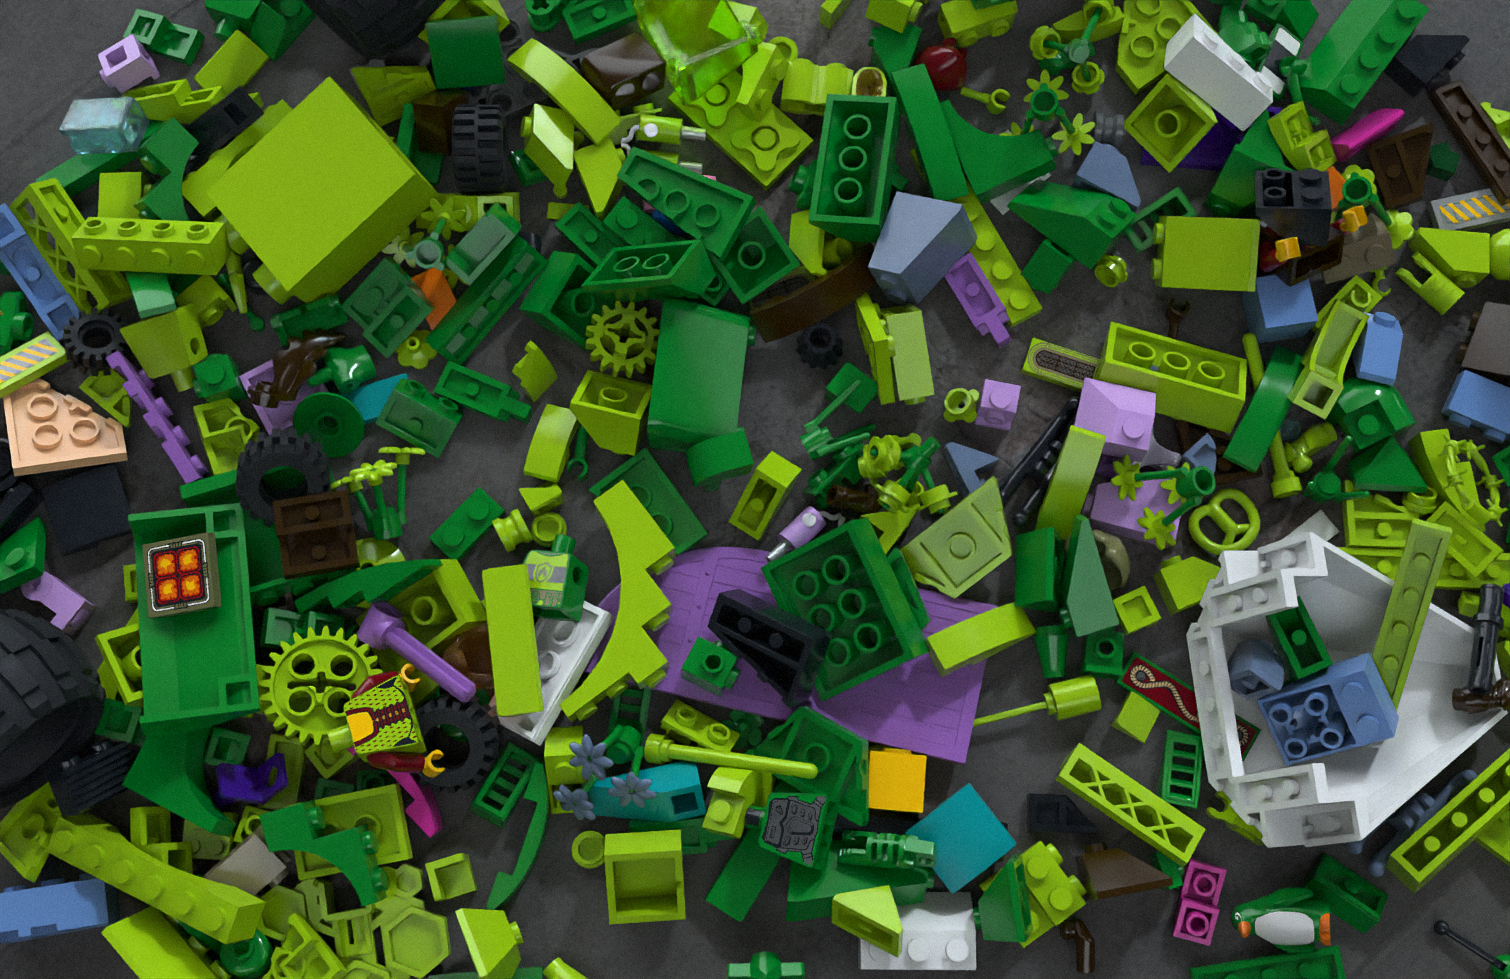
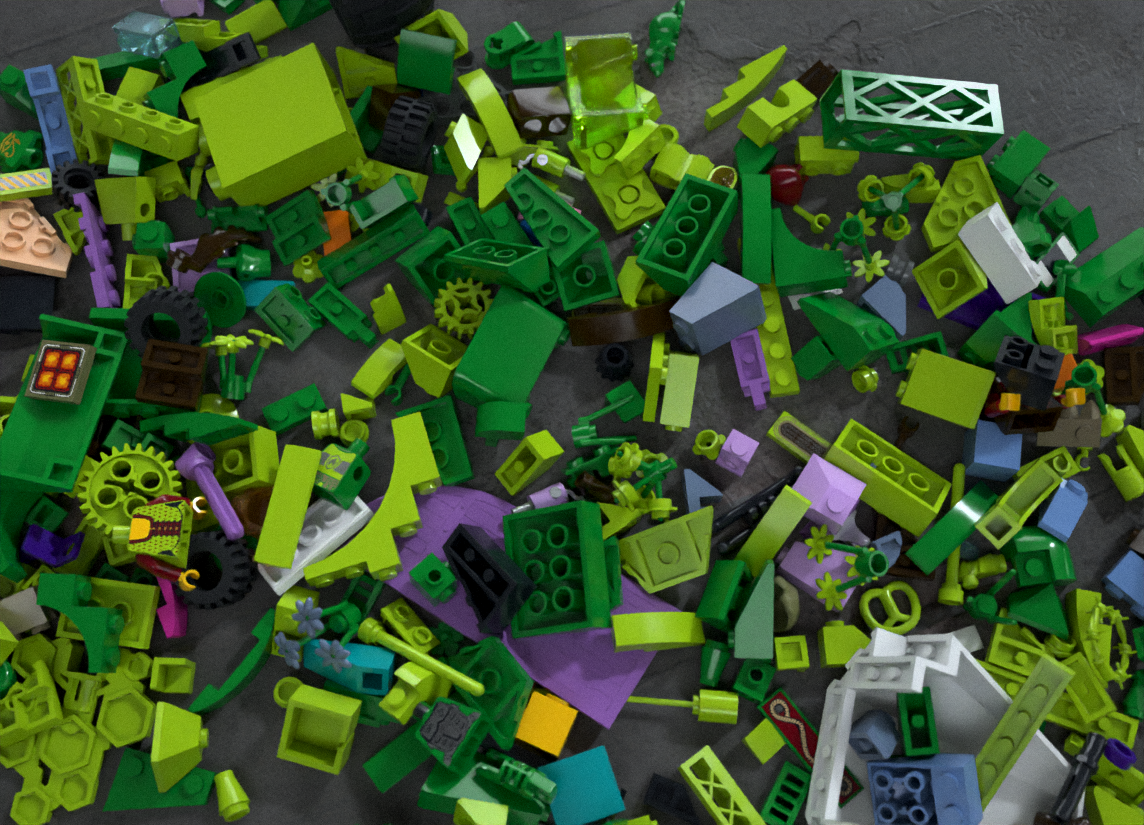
camera: 20 degrees right, 5 degrees down
(489, 813) = (237, 610): green slope -> none

